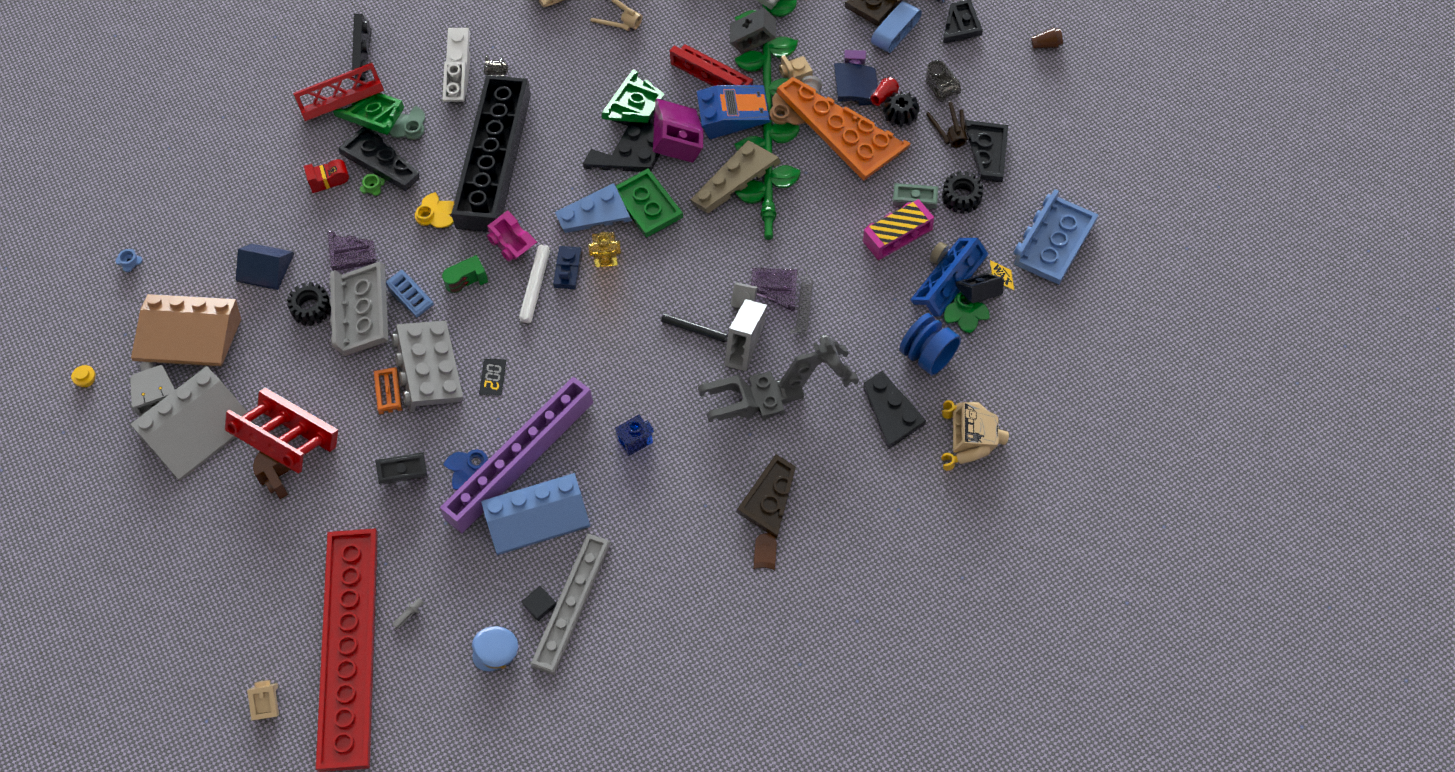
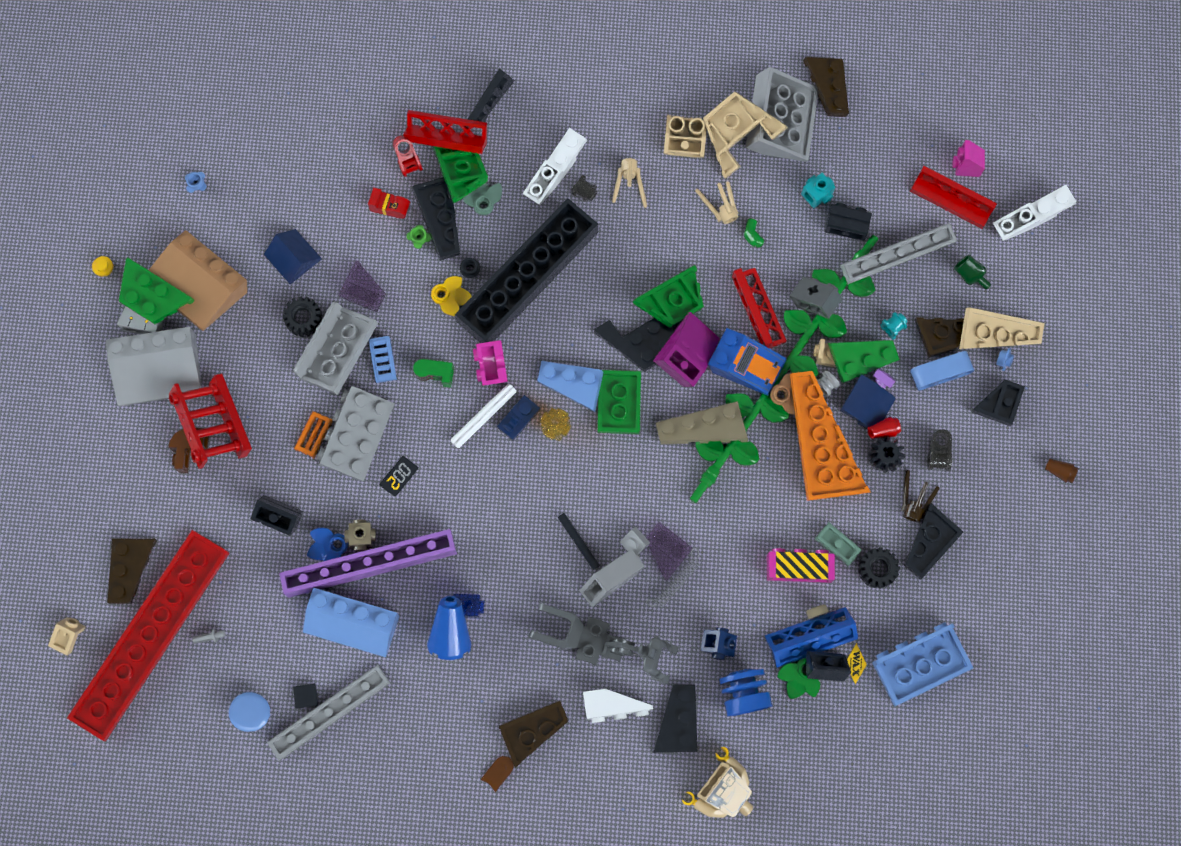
camera: 30 degrees right, 15 degrees up
(149, 362) = (149, 294): none -> green wing
(284, 606) = (126, 568): none -> dark brown wing
(317, 130) = (407, 159): none -> red piece
(436, 176) = (469, 262): none -> black plate
(492, 436) = (362, 543): none -> dark tan brick
(524, 35) = (629, 171): none -> tan plant
(633, 453) = (449, 631): none -> blue cone
(663, 23) = (751, 235): none -> green arm
(820, 430) = (607, 703): none -> white slope
(821, 54) = (861, 357): none -> green wing
(831, 18) = (894, 324): none -> teal brick
(877, 324) = (719, 643): none -> dark blue brick

